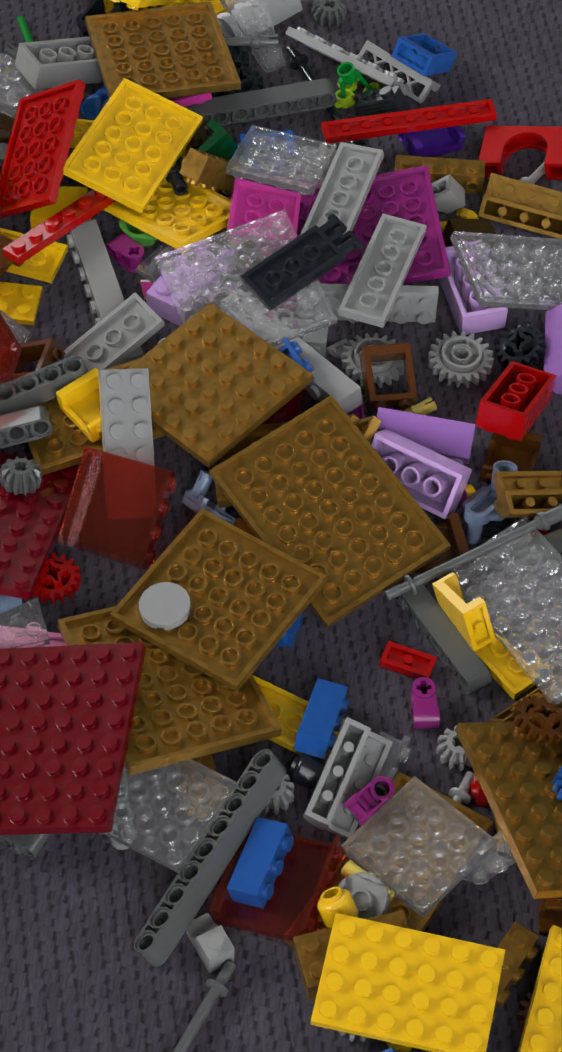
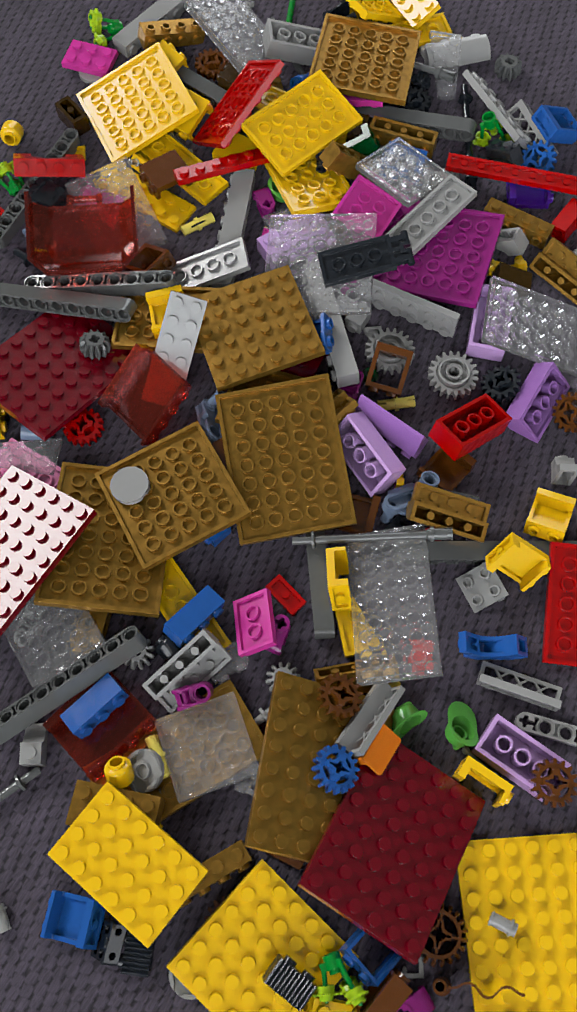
camera: 30 degrees right, 15 degrees up
(47, 314) = (187, 229): none -> light yellow pin
(240, 120) = (418, 137): none -> pearl gold brick
(382, 270) = (424, 286): light grey plate -> none
(393, 699) = (254, 623): none -> dark pink plate
(430, 92) = (534, 150): none -> blue gear

